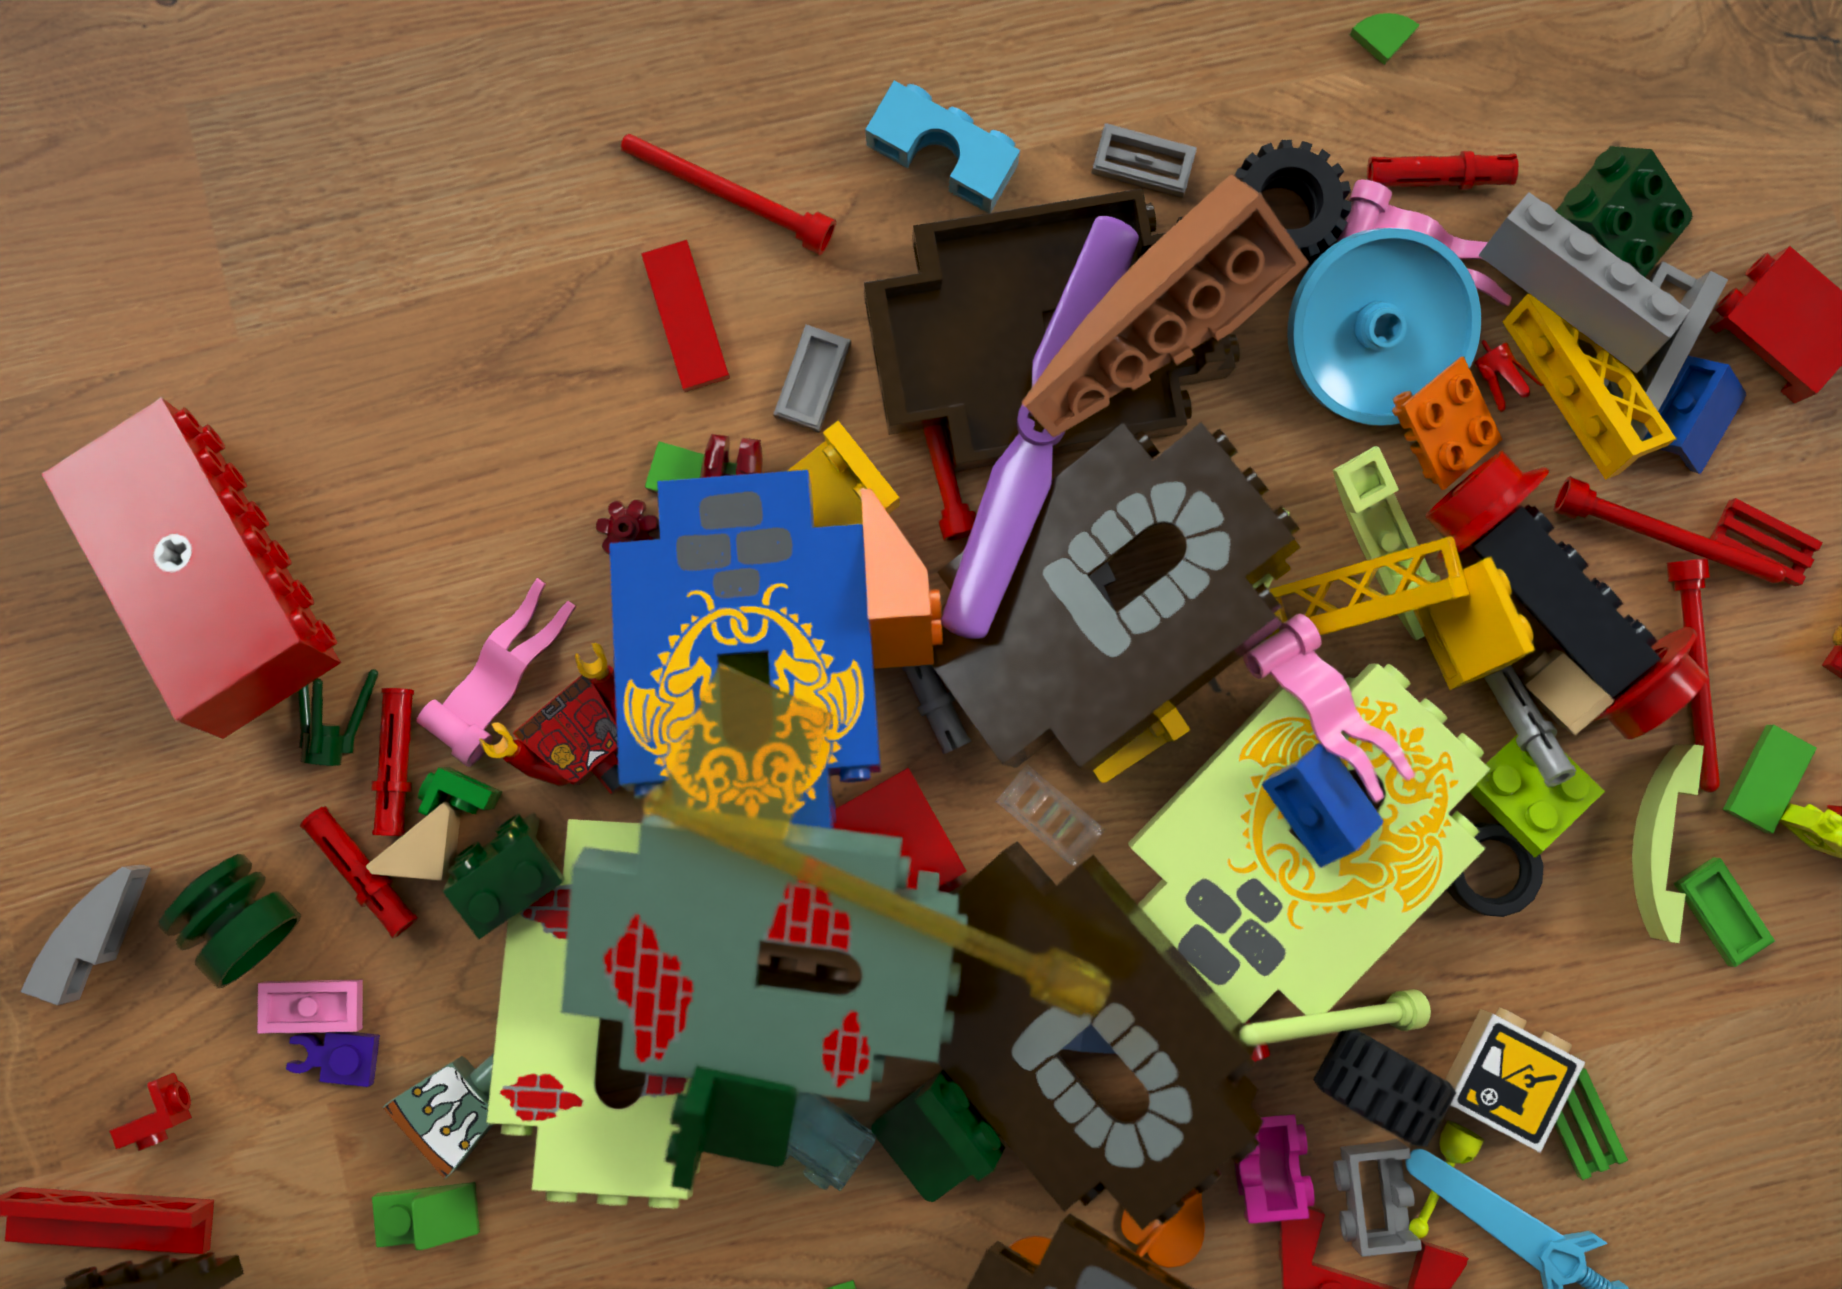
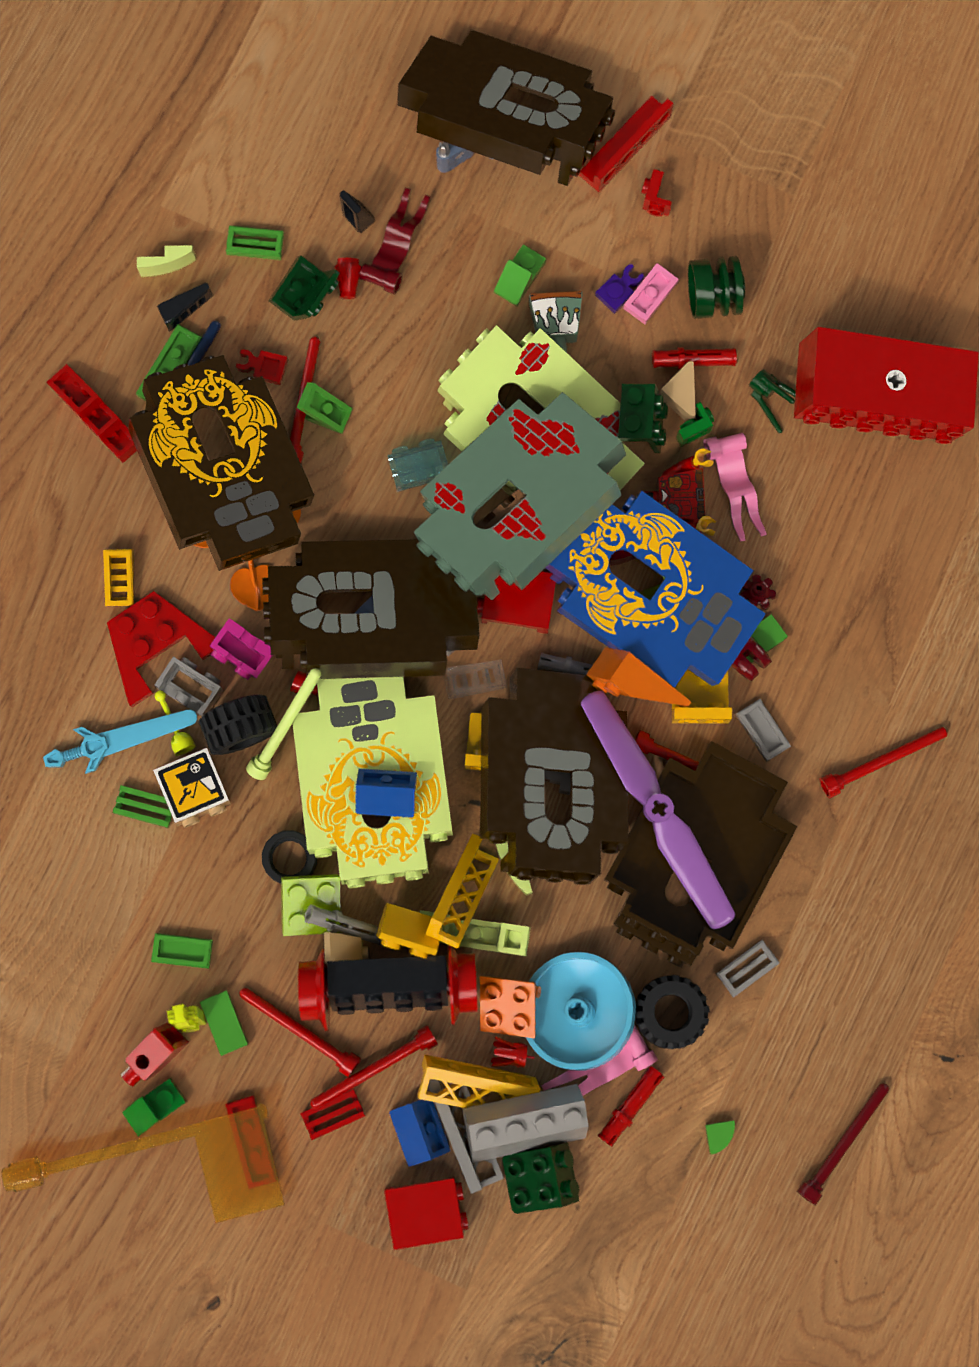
camera: 130 degrees right, 5 degrees down
(86, 937) = (757, 222): light grey slope -> none
(393, 762) = (722, 401): red pin -> none
(685, 316) = (838, 695): red tile -> none
(729, 1119) = (460, 427): dark green bracket -> none
(741, 786) = (598, 535): clear yellow flag -> none
(911, 121) = (851, 867): medium azure arch -> none
(938, 1137) = (374, 515): dark green bracket -> none
(1179, 294) = (667, 913): nougat wedge -> none
(1325, 696) = (433, 830): bright pink flag -> none
(1652, 841) = (261, 974): yellowish green slope -> none

